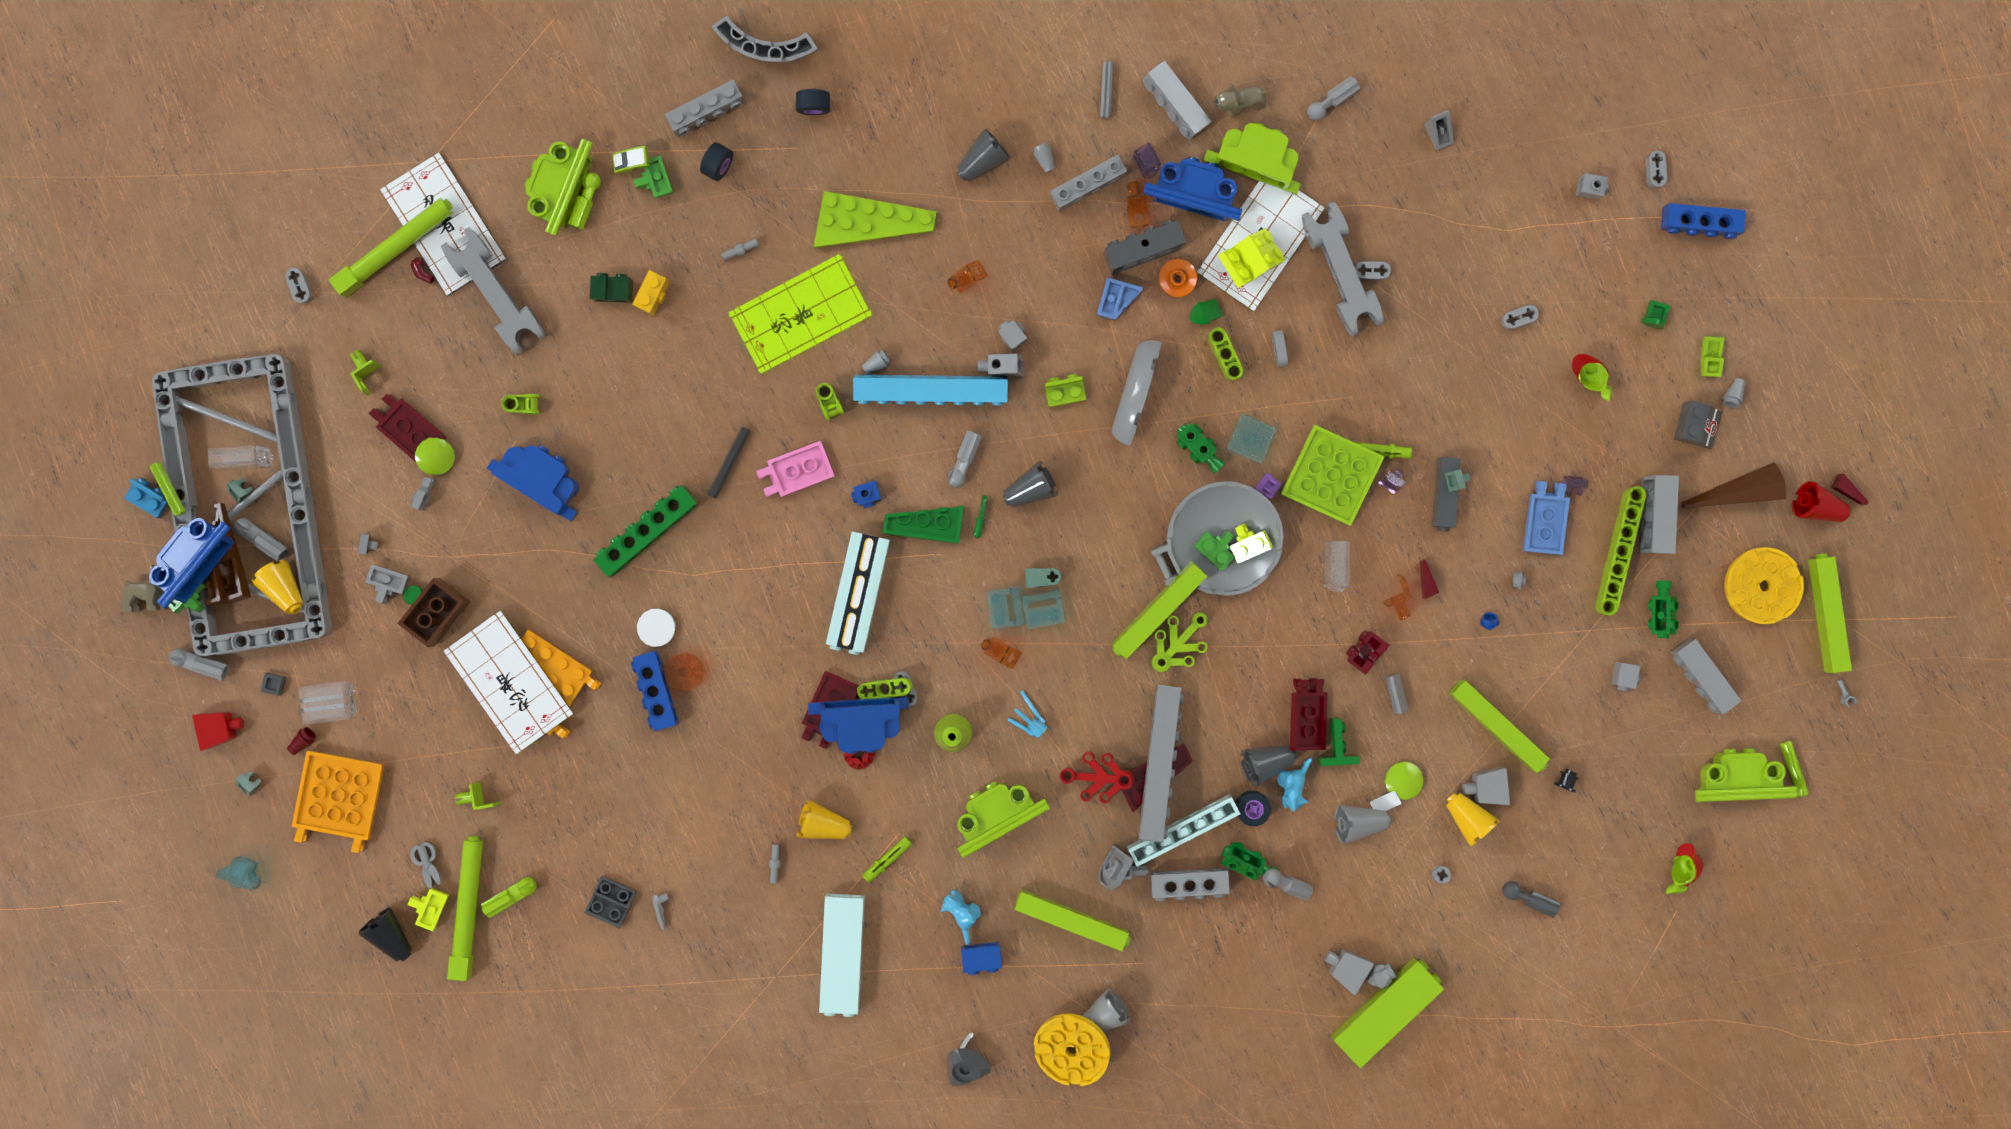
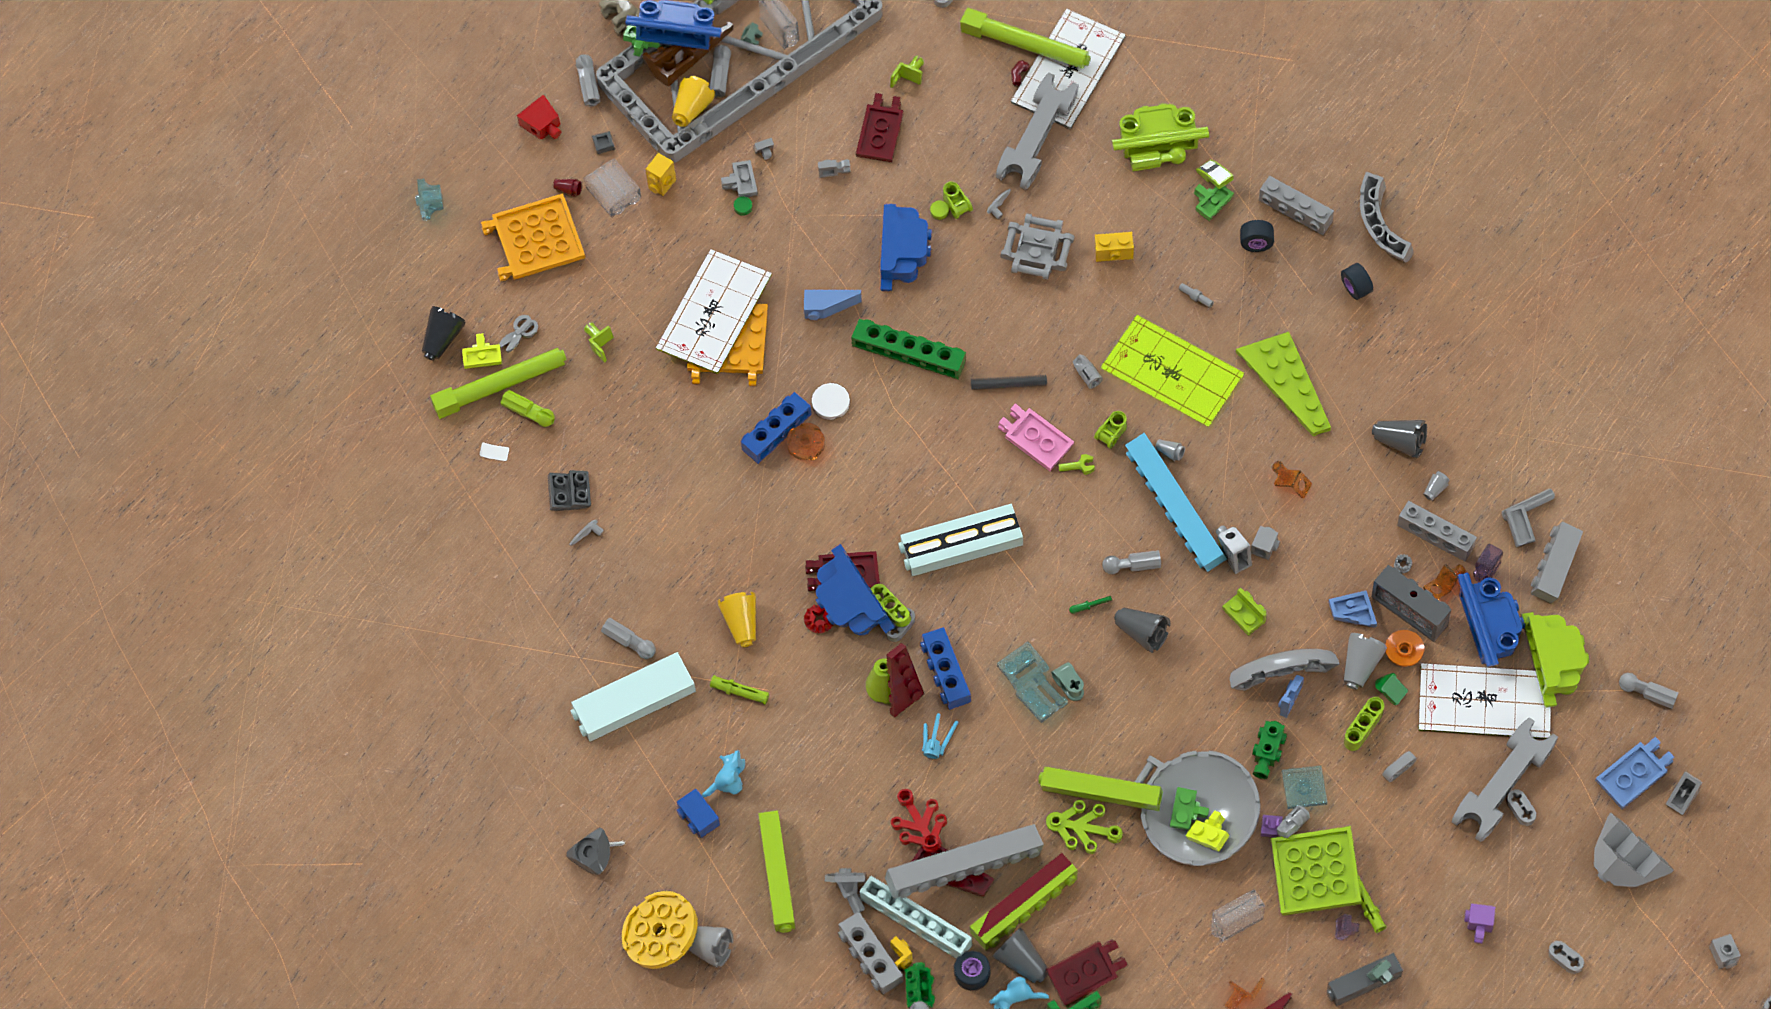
camera: 65 degrees right, 25 degrees down
(245, 785) = (505, 165): sand green tile -> none
(340, 655) = (660, 174): none -> yellow brick
(433, 612) = (739, 225): reddish brown brick -> none
(434, 456) = (870, 159): lime dish -> none
(521, 423) = (939, 210): none -> lime tile
(532, 946) = (494, 452): none -> white sticker
(545, 368) = (993, 208): none -> light grey bar
(557, 579) = (824, 303): none -> medium blue slope
(611, 289) = (1096, 215): dark green brick -> none
(612, 360) = (1037, 247): none -> light grey brick
(759, 388) = (1087, 371): none -> light grey hinge
(774, 863) = (681, 601): light grey bar -> none
(782, 929) = (627, 638): none -> light grey piece
(844, 449) = (1079, 465): none -> lime bar
(866, 494) = (1051, 501): blue brick -> none
(931, 525) = (1055, 564): green wing -> none
(969, 724) = (903, 680): none -> dark red wing
(995, 814) = (833, 755): lime brick -> none
(1000, 651) = (981, 681): clear orange bracket -> none
(1000, 674) = (939, 640): none -> blue brick
(1099, 224) = (1399, 559): none -> light grey bush
(1123, 109) = (1519, 525): none -> light grey tile
(1161, 394) = (1288, 700): none -> medium blue wing
(1169, 321) = (1361, 659): none -> light grey cone
(1202, 855) = (901, 948): none -> yellow bracket
(1217, 731) = (1024, 901): none -> brick
(1240, 99) = (1593, 610): dark tan animal -> none
(1252, 257) = (1462, 694): neon yellow bracket -> none
(1278, 467) = (1293, 821): none -> light grey hinge
(1366, 651) = (1176, 990): dark red cylinder -> none
(1397, 158) = (1634, 773): none -> medium blue tile
(1450, 366) = (1480, 919): none -> medium lavender brick
(1467, 214) = (1625, 857): none -> light grey brick

